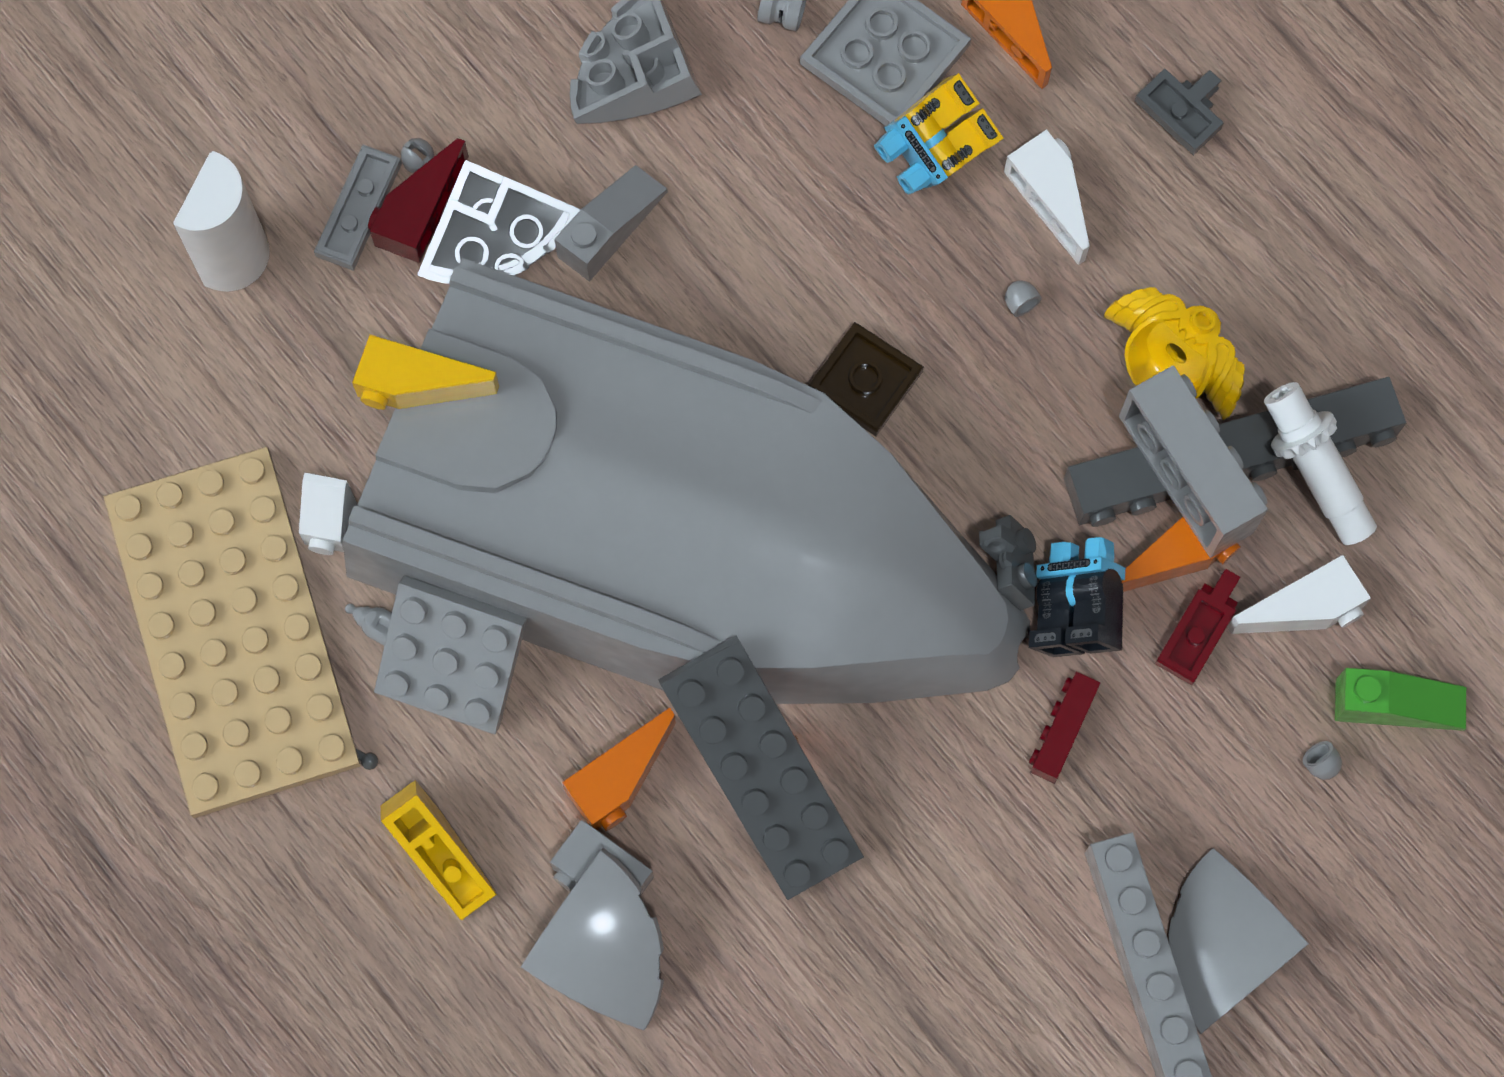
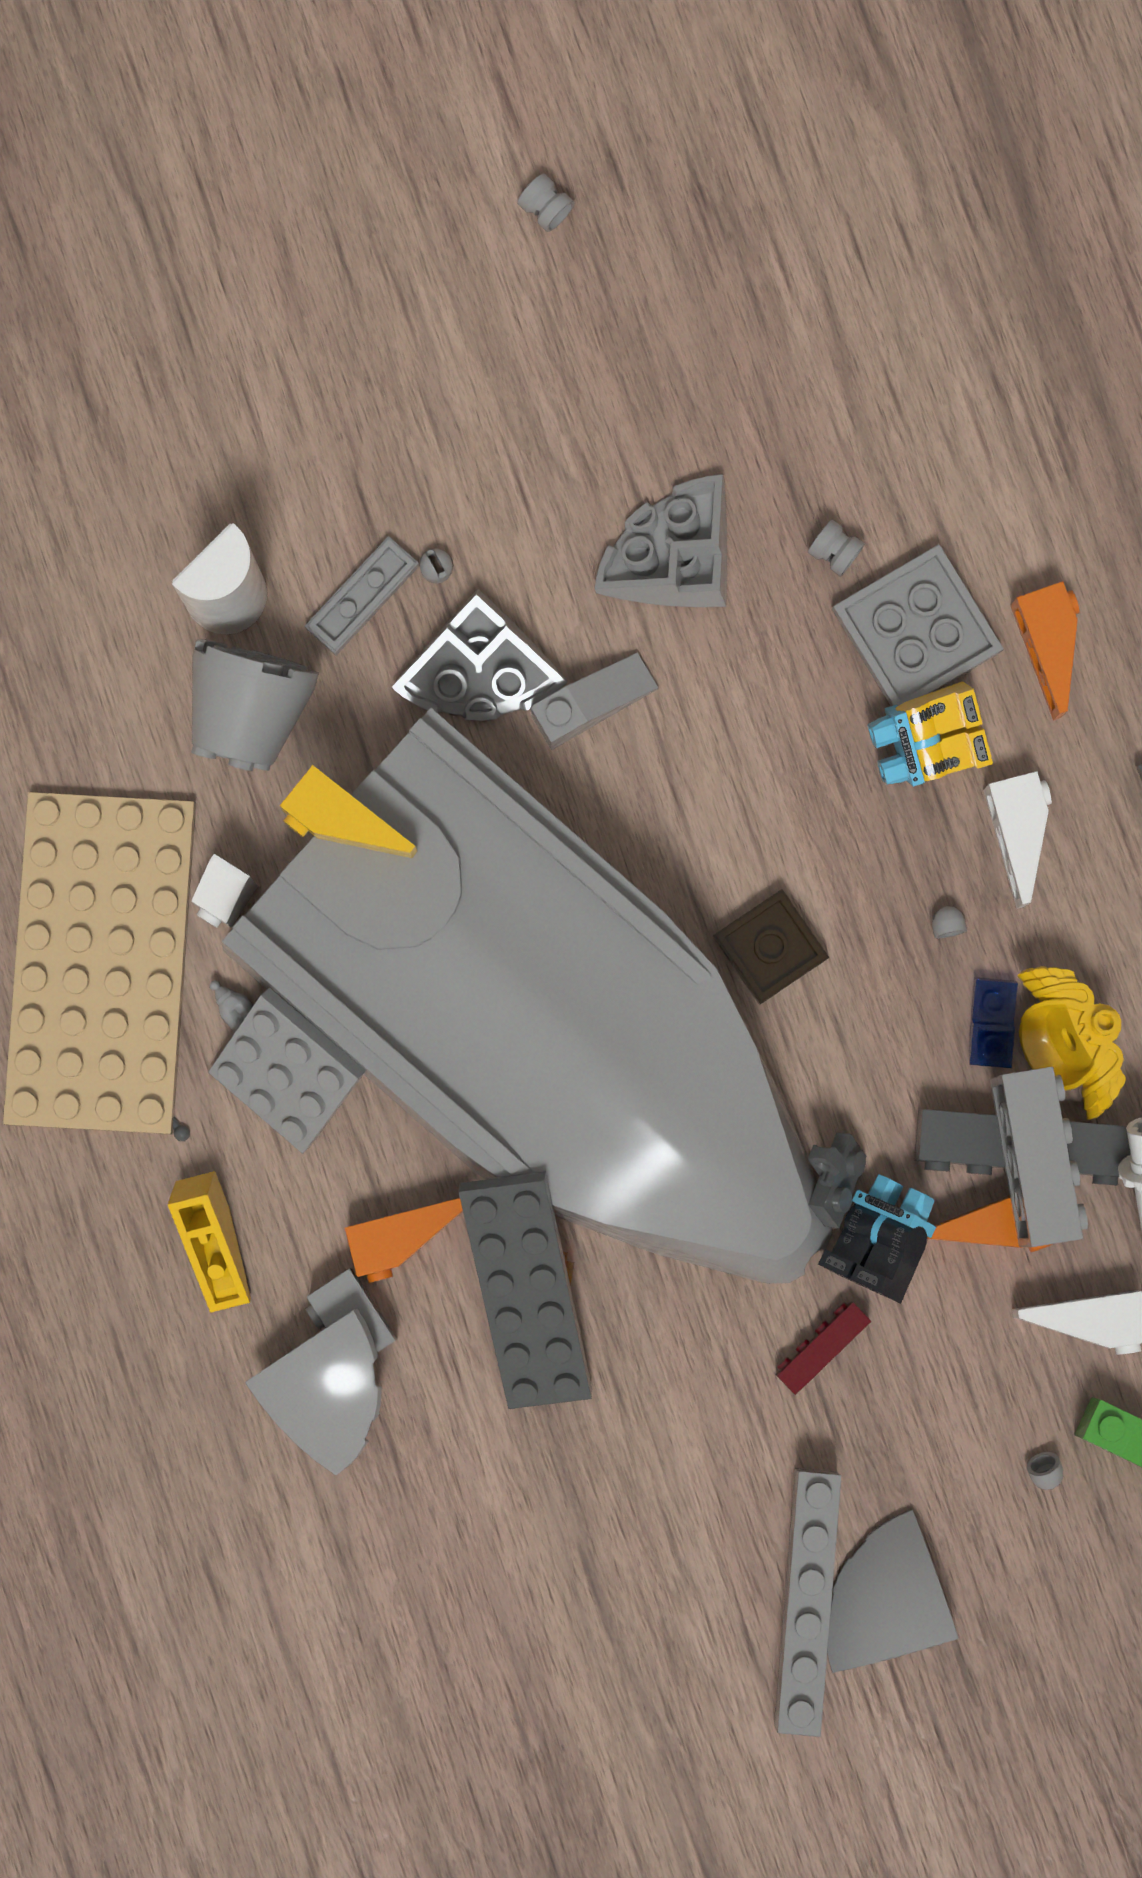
camera: 20 degrees right, 10 degrees up
(283, 331) = (245, 703): none -> light grey cone
(416, 205) = (414, 619): dark red slope -> none
(1098, 370) = (992, 1022): none -> clear blue slope
(1199, 629) = (984, 1304): dark red hinge -> none

